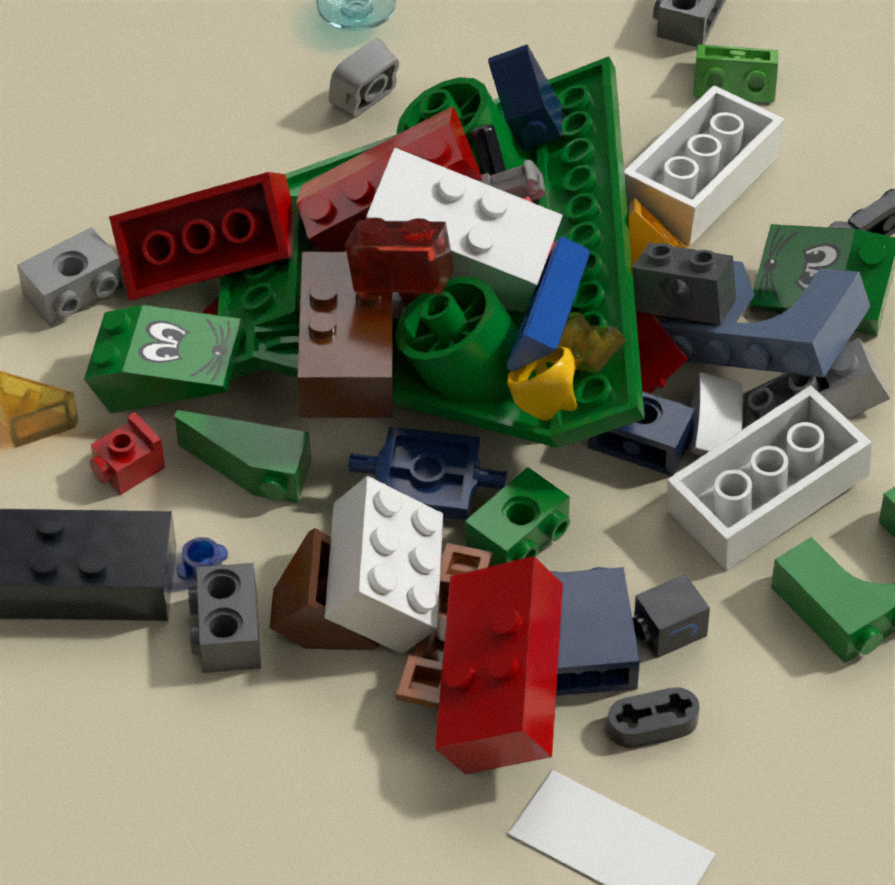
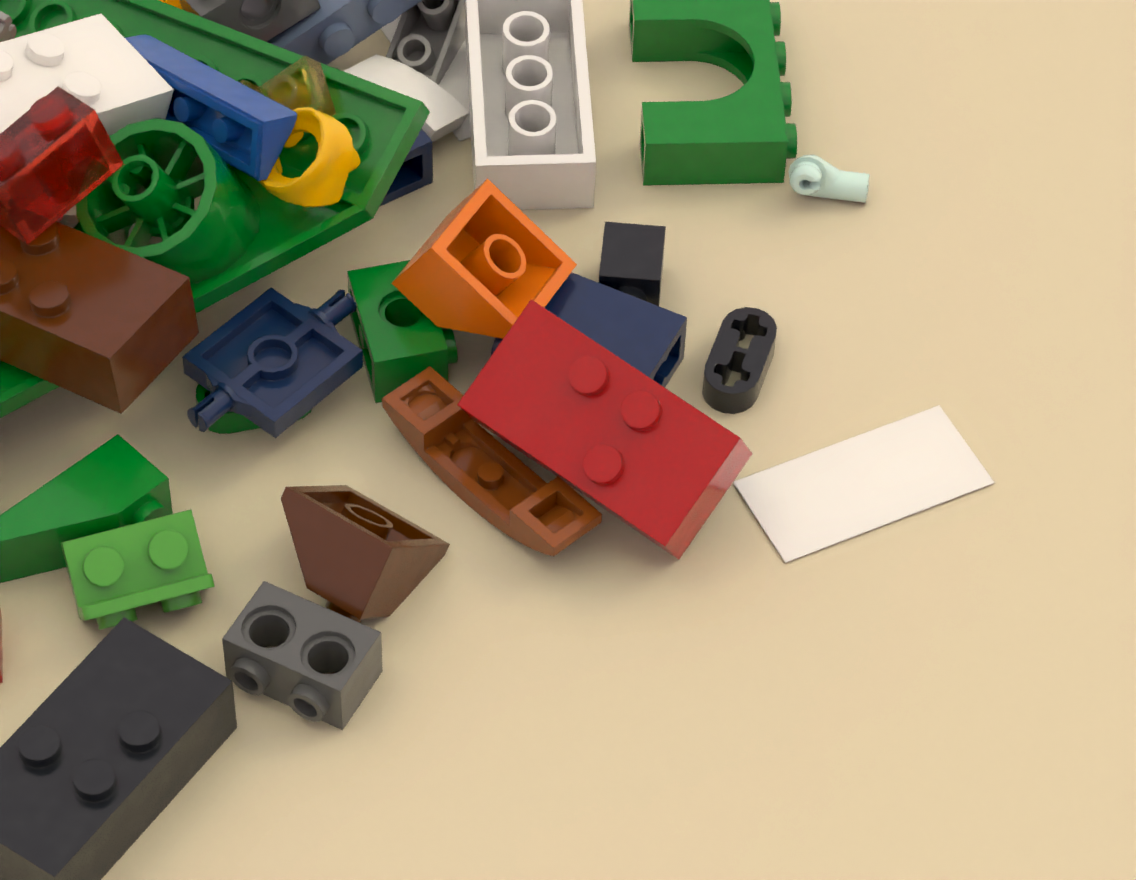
camera: 60 degrees left, 0 degrees up
(200, 550) = (193, 629): clear blue plate -> none
(230, 504) = (137, 567): none -> bright green bracket
(384, 565) = (377, 460): white brick -> none
(574, 527) = (483, 266): none -> orange slope
(849, 670) = (818, 178): none -> light aqua arm

